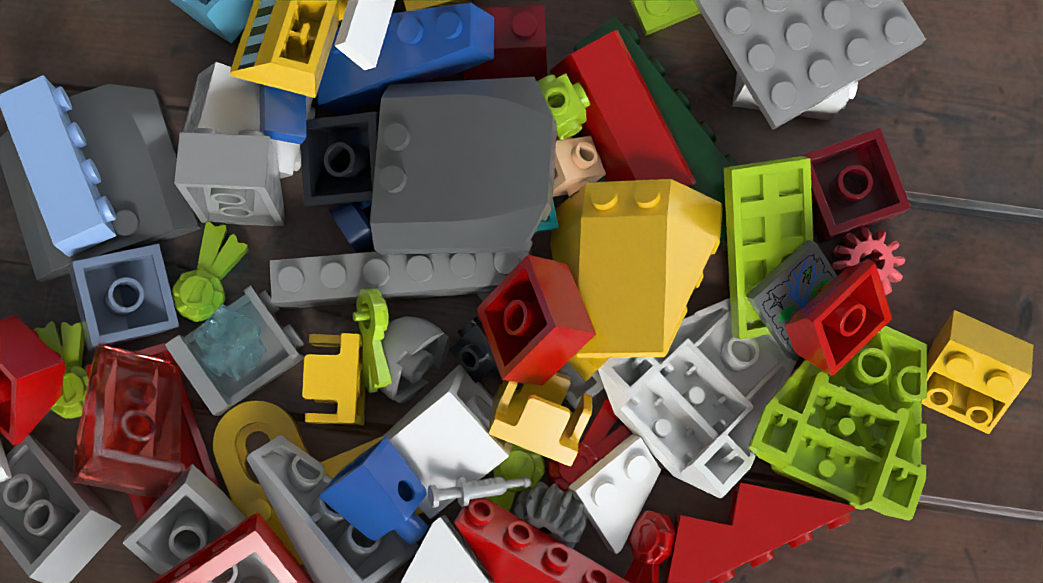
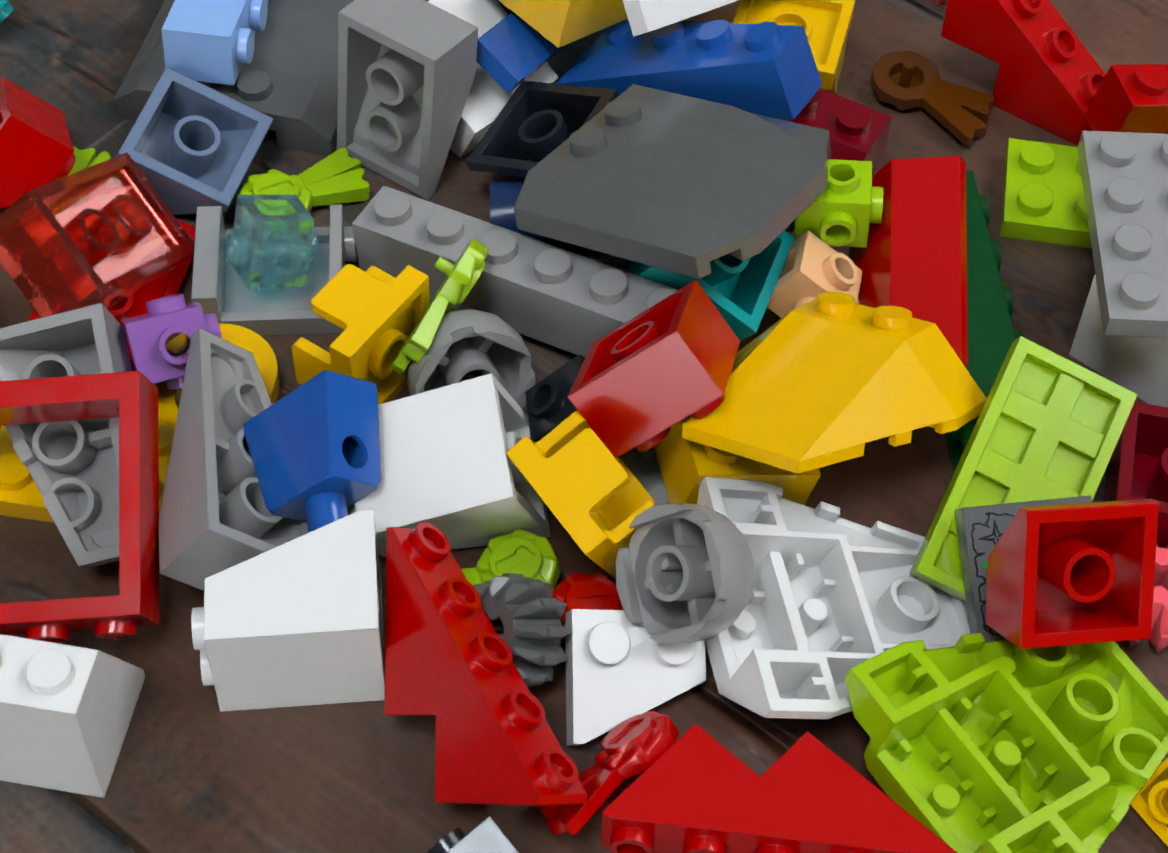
camera: 30 degrees right, 30 degrees down
(223, 455) = (150, 331): none -> medium lavender brick
(474, 489) = (443, 515): light grey piece -> none
(629, 439) = (684, 573): none -> light grey cylinder

